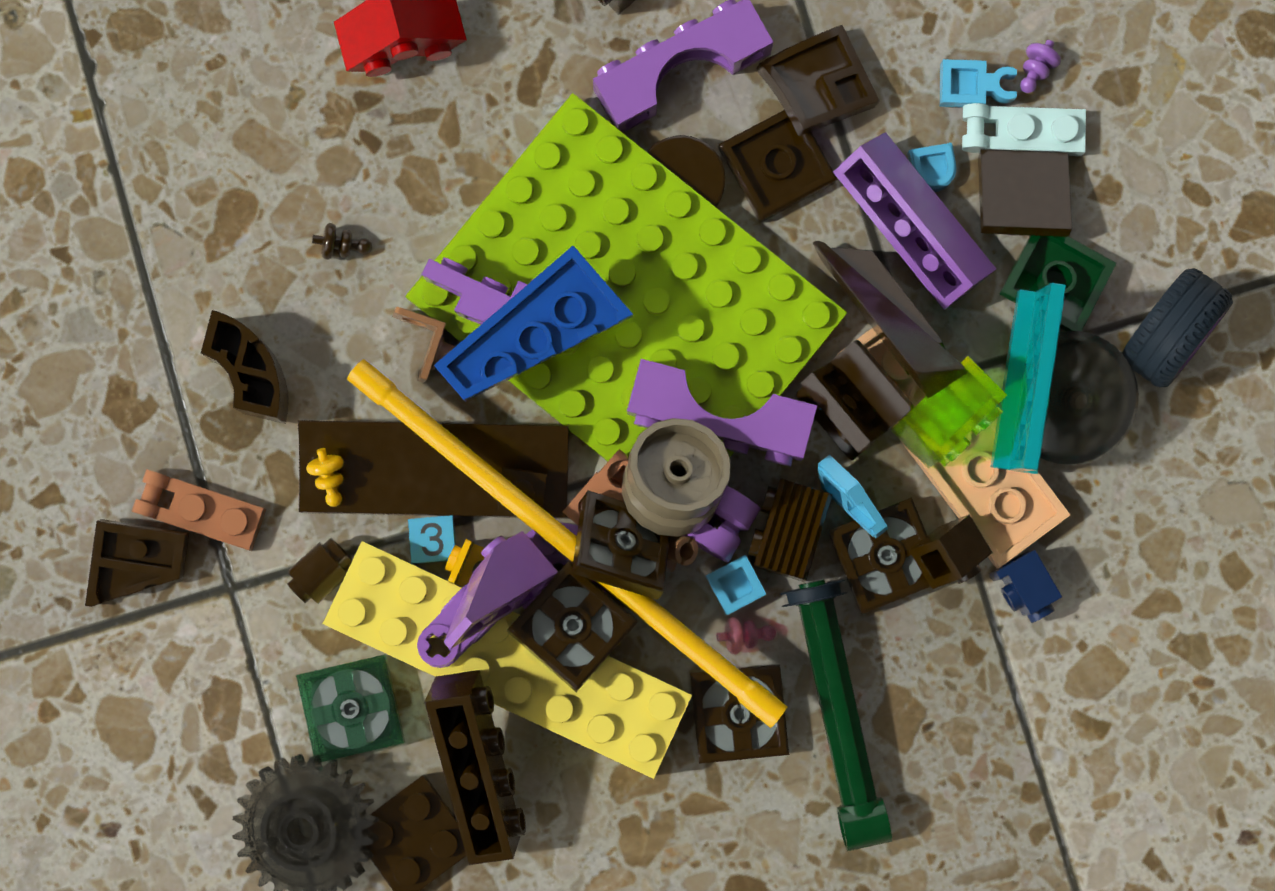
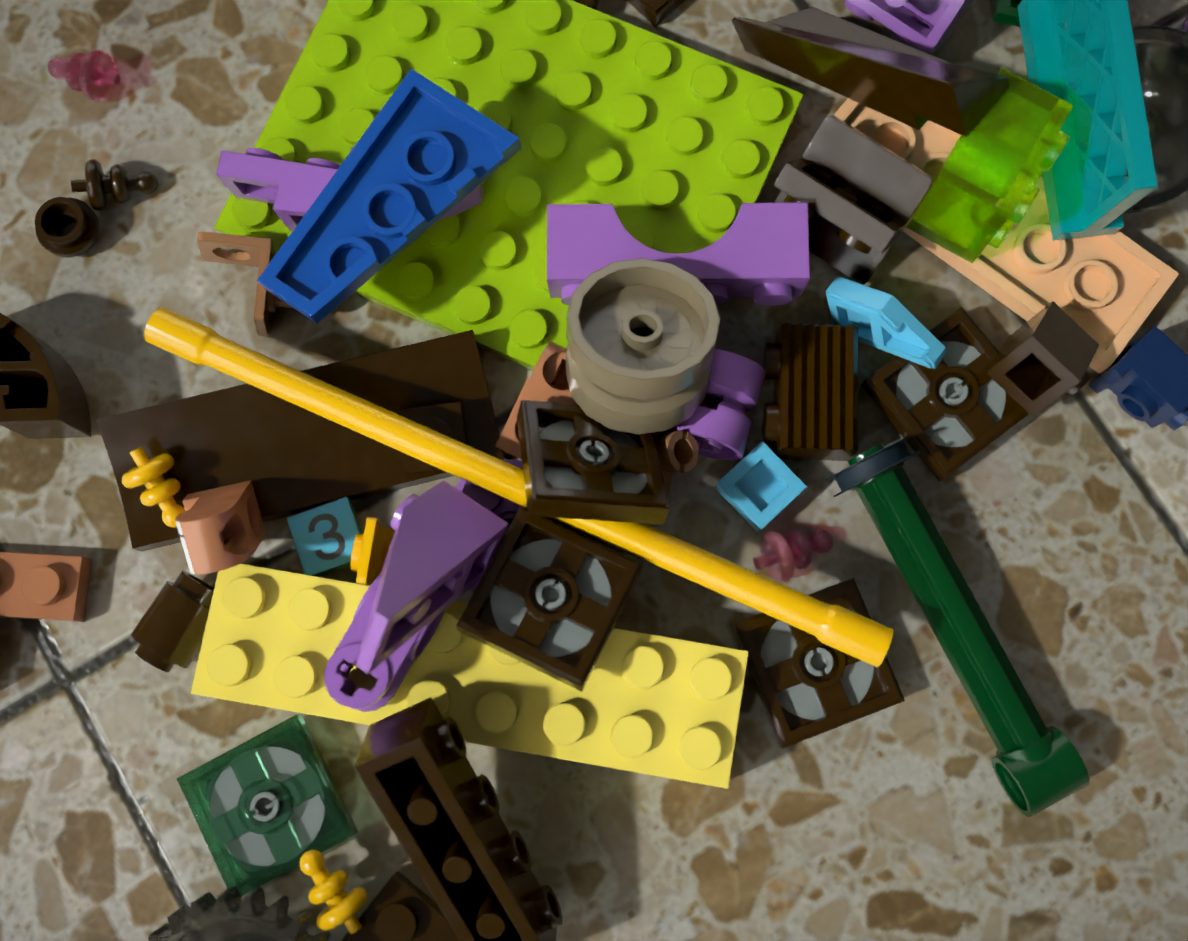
camera: 10 degrees left, 5 degrees down
(292, 257) = (55, 216): none -> dark brown plate
(344, 155) = (90, 73): none -> clear pink hair
(366, 518) = (220, 527): none -> nougat leg
(384, 785) = (329, 889): none -> yellow hair

